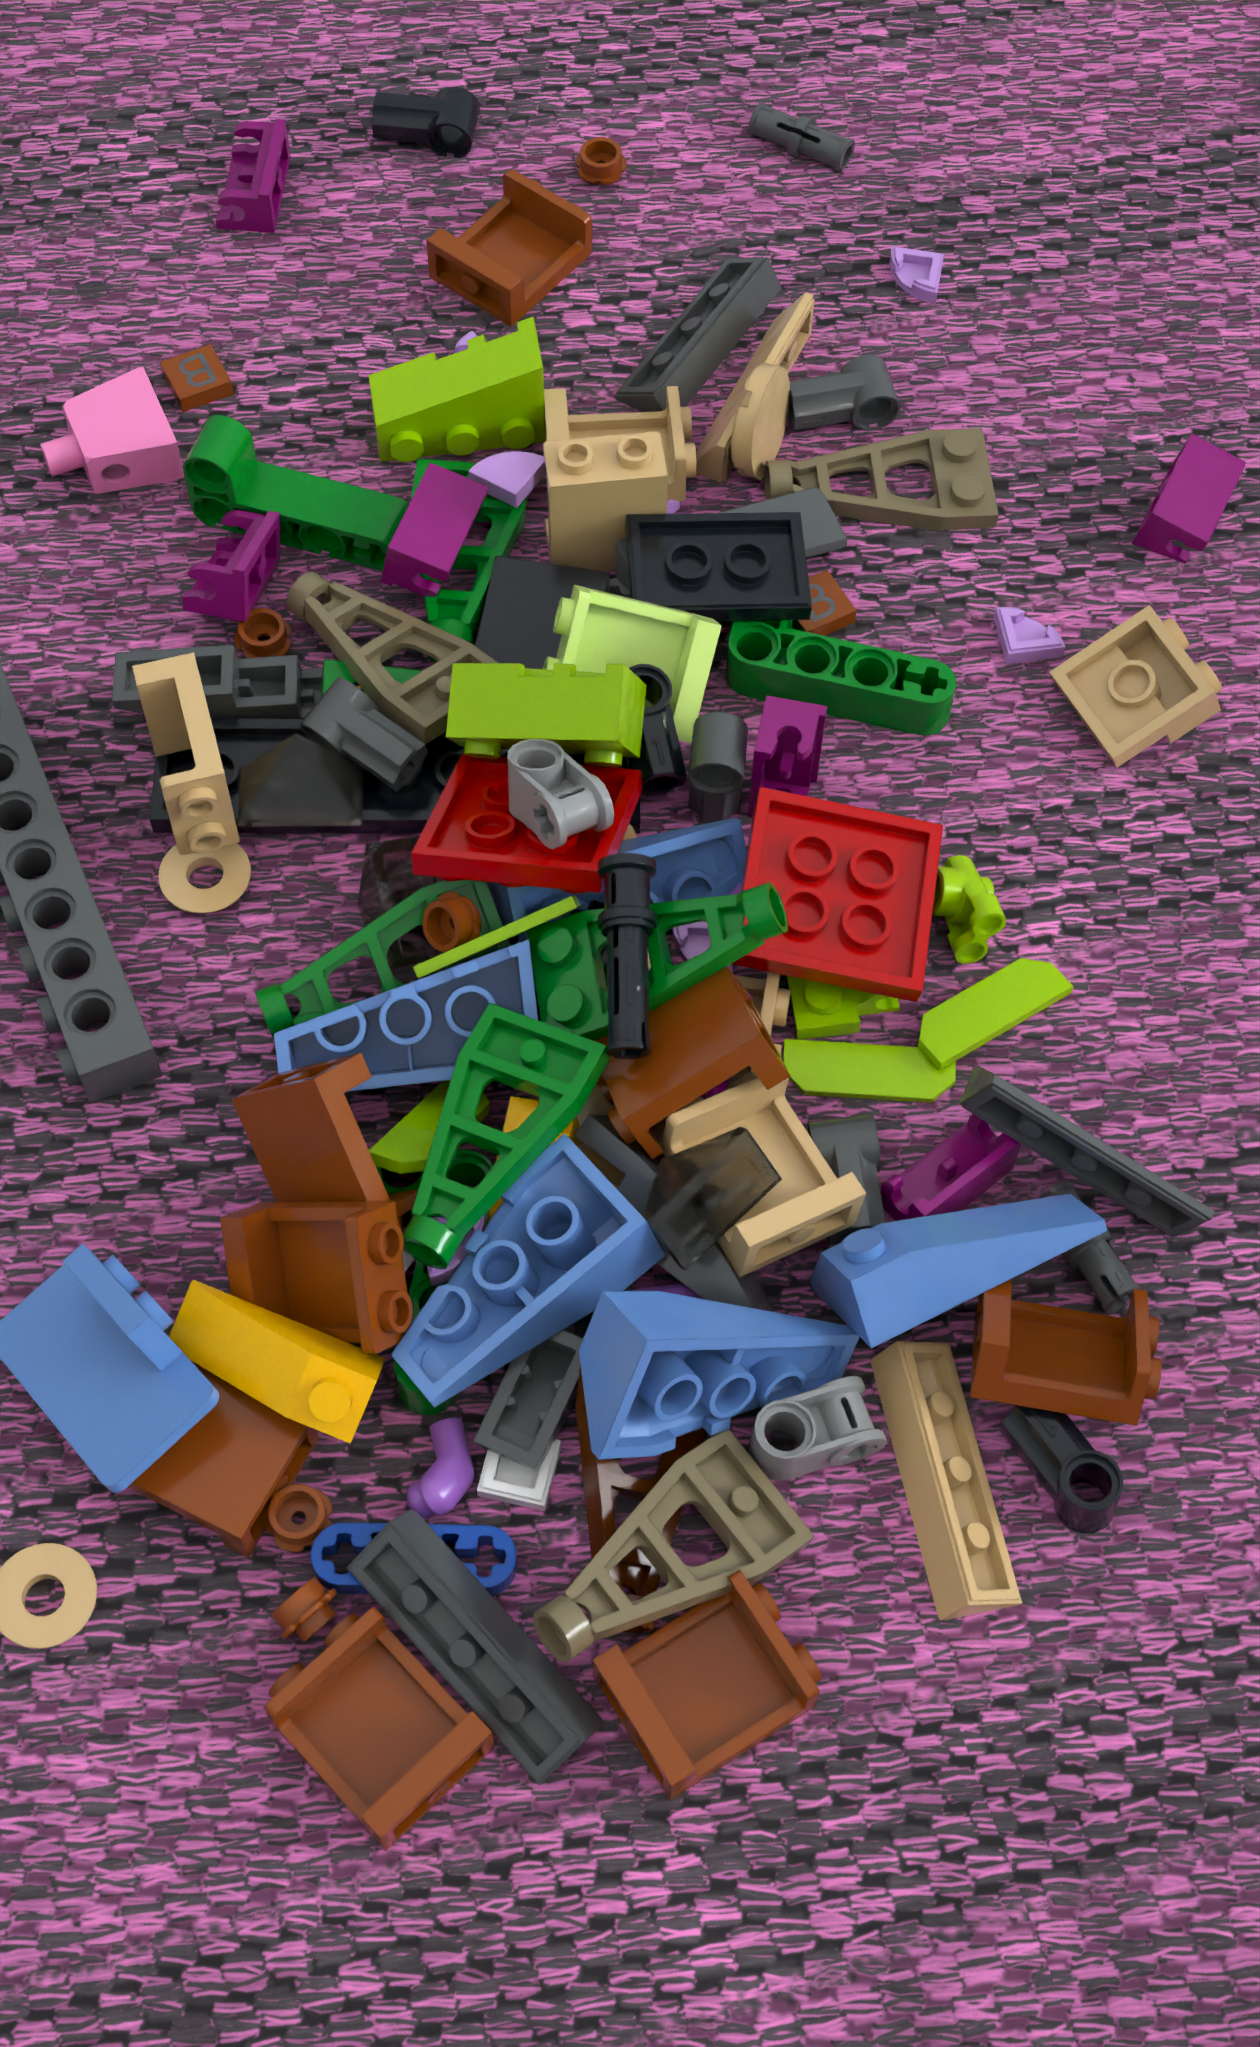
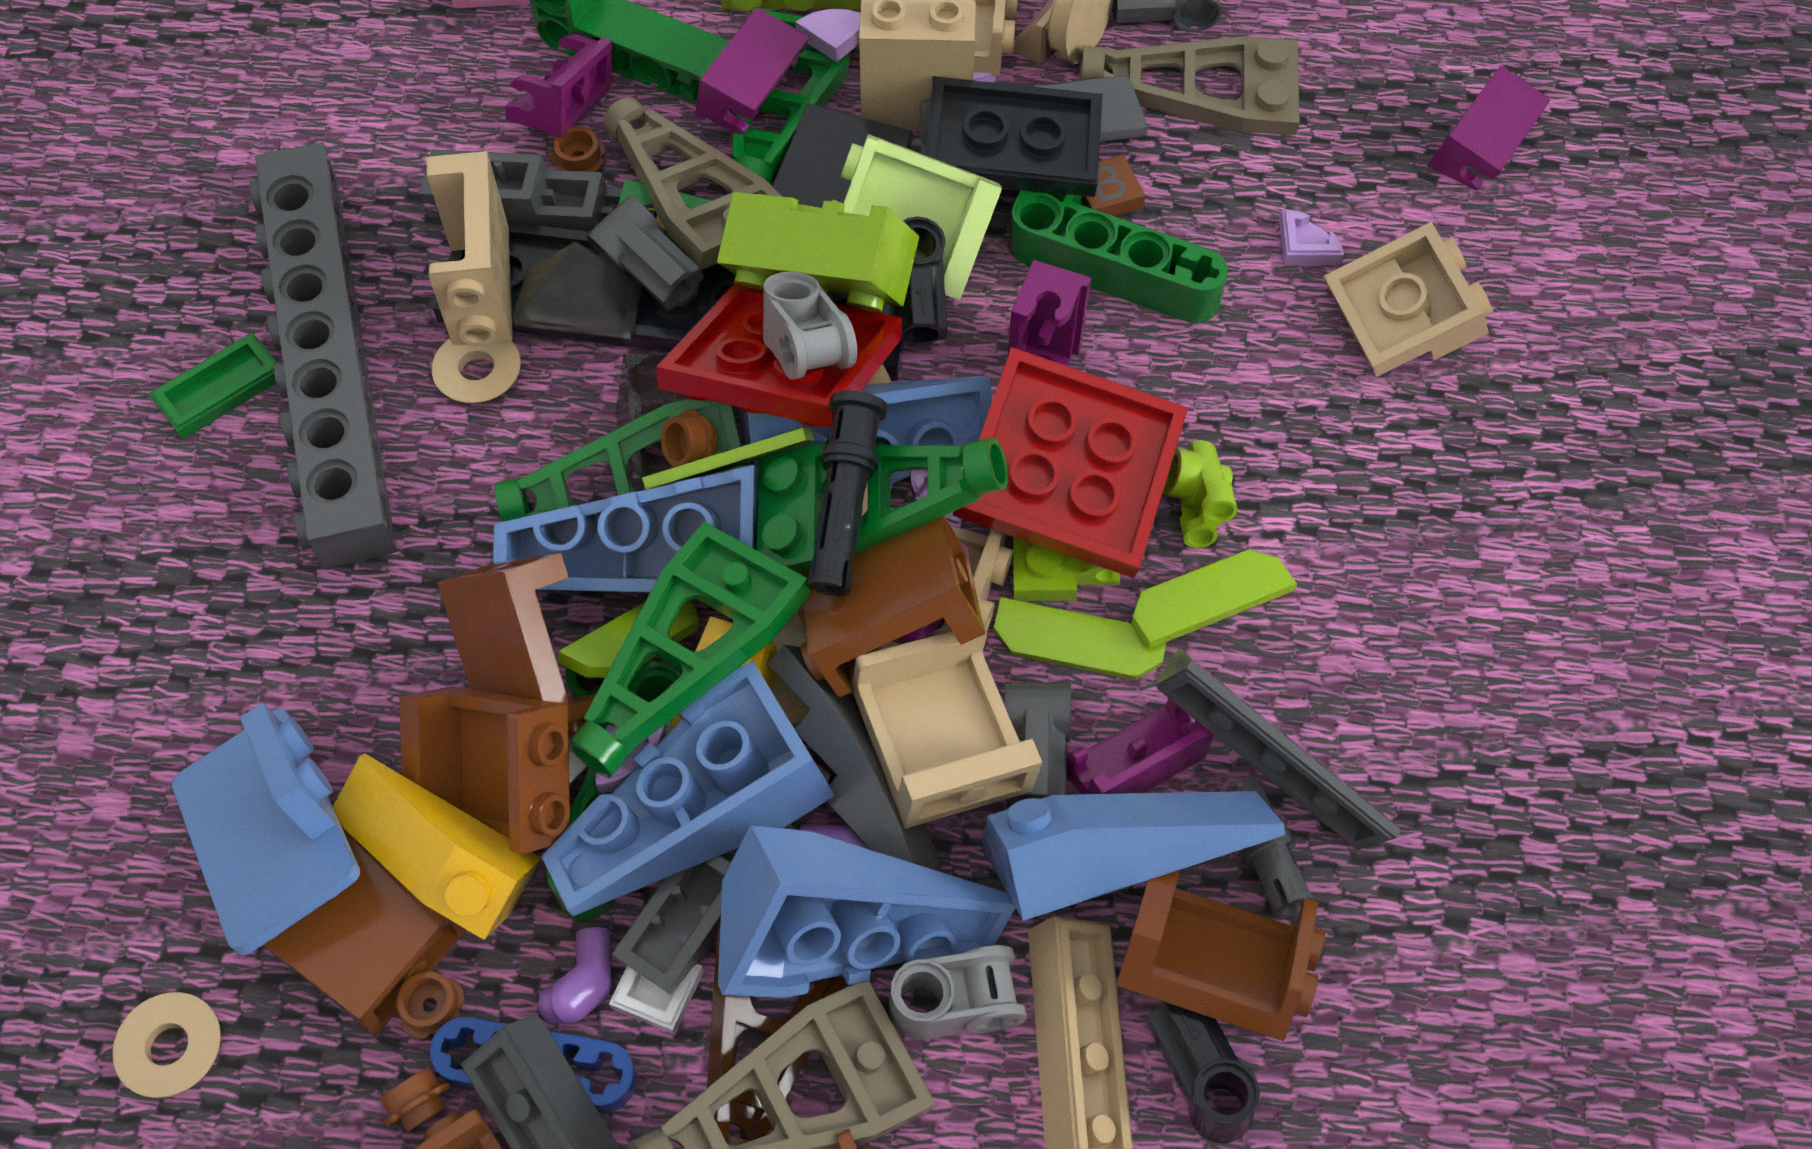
camera: 10 degrees right, 0 degrees up
(706, 1192) = (882, 739): clear smoke slope -> none
(717, 766) = (978, 323): dark grey piece -> none

